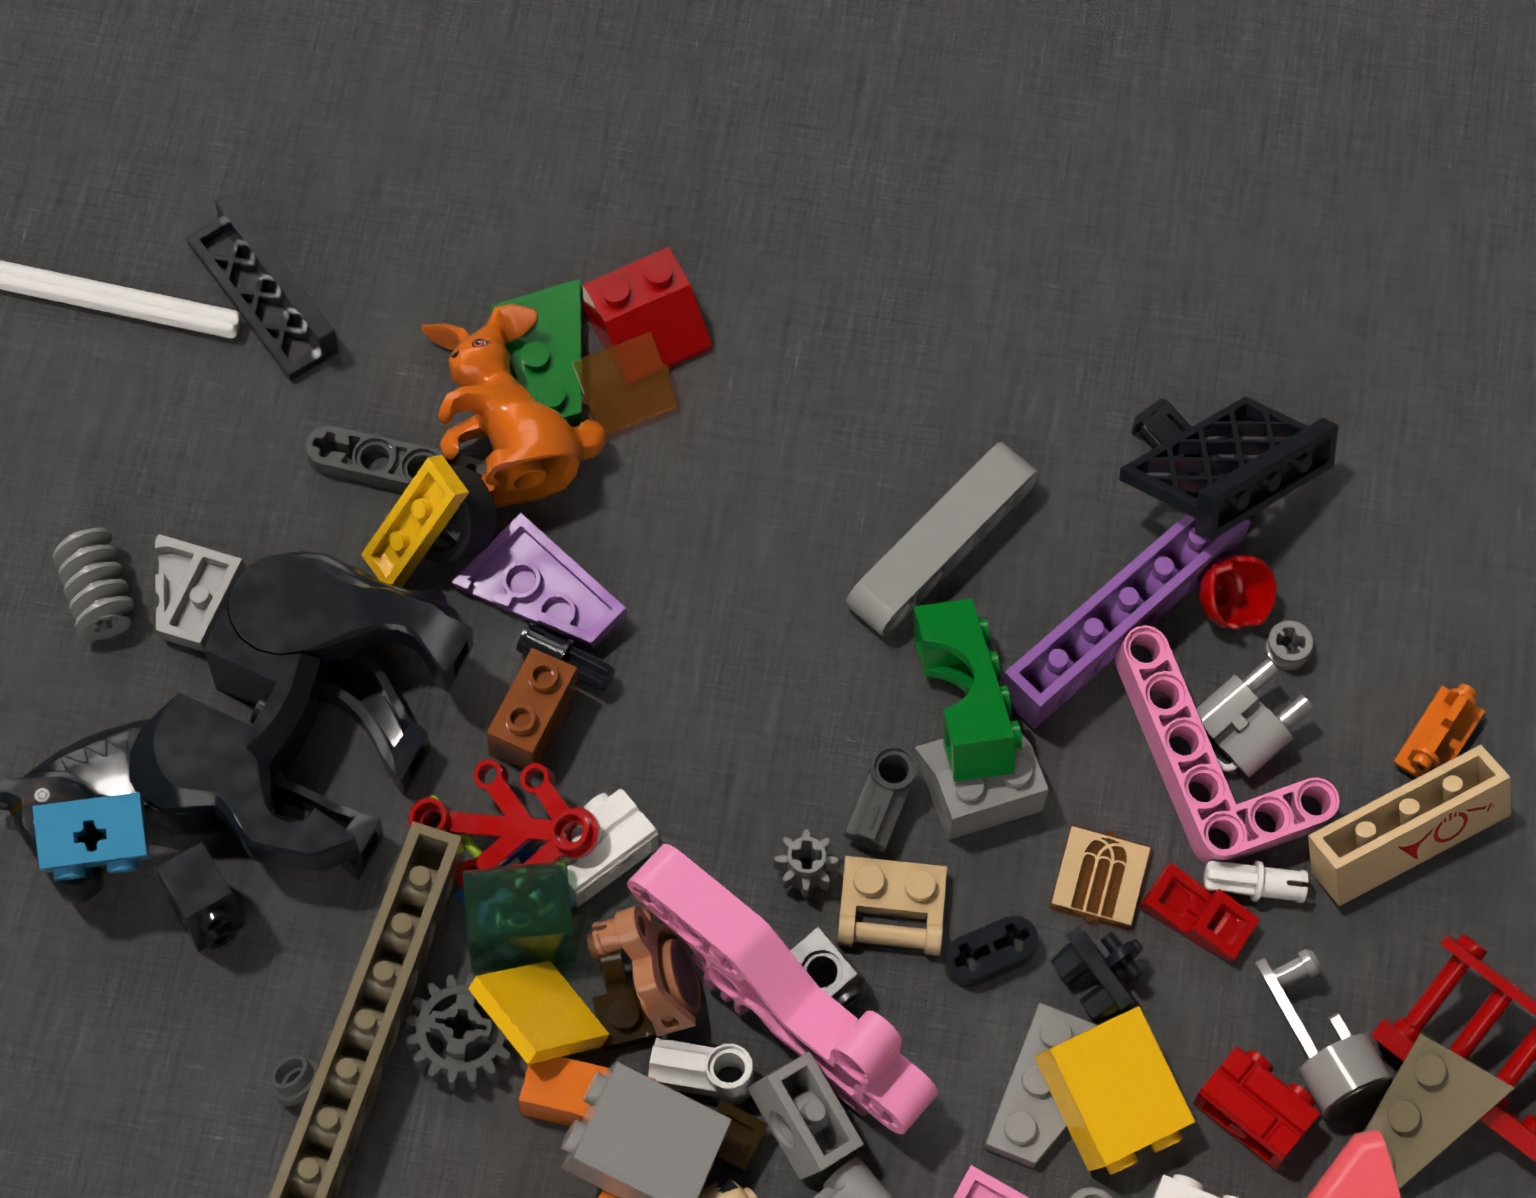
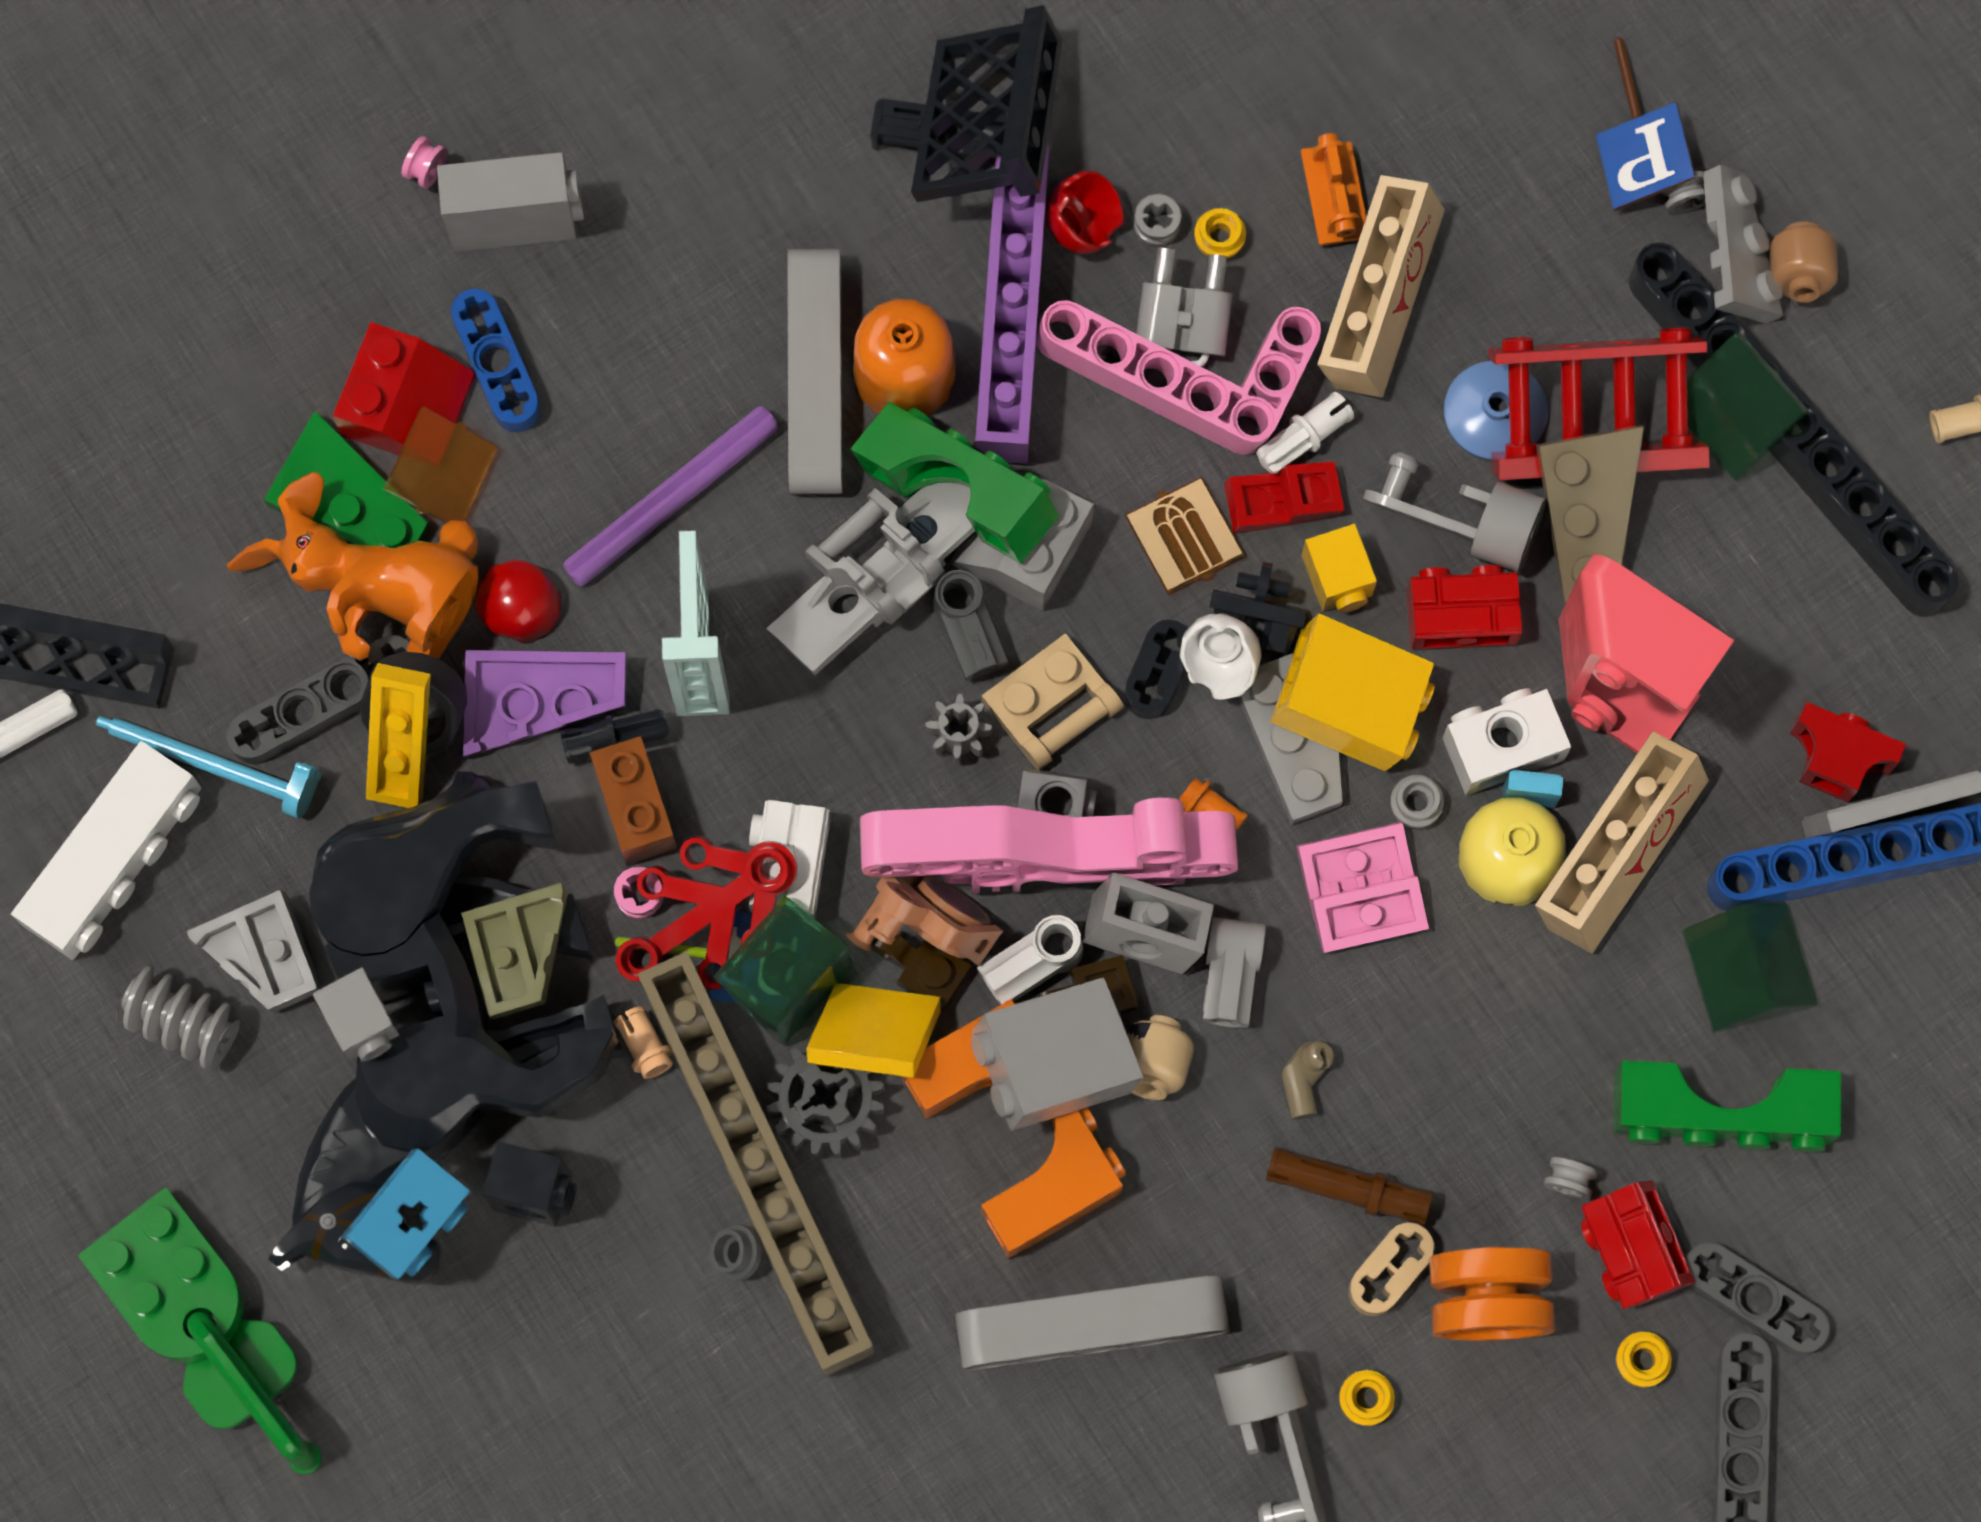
camera: 40 degrees left, 10 degrees up
(159, 437) = (108, 851): none -> white brick
(191, 669) = (356, 1016): none -> light grey brick
(317, 509) = (295, 794): none -> medium azure piece
(351, 731) = (516, 948): none -> olive wing
(376, 879) = (643, 1043): none -> light nougat pin
(466, 764) = (628, 905): none -> bright pink bush
(591, 515) = (518, 601): none -> red hair
(675, 624) = (695, 659): none -> light aqua fence
(735, 368) = (495, 322): none -> blue beam
(763, 536) = (670, 496): none -> medium lavender axle
(811, 184) = (423, 162): none -> bright pink bush
(838, 250) = (509, 201): none -> light grey brick
(849, 721) = (887, 583): none -> light grey piece
(935, 1065) = (1201, 797): none -> orange pin
(1013, 579) = (904, 373): none -> orange cylinder
(1042, 975) = (1221, 655): none -> white hair
(1190, 997) = (1339, 569): none -> yellow brick
(1334, 682) = (1224, 220): none -> yellow plate
(1393, 990) = (1471, 419): none -> medium blue dish

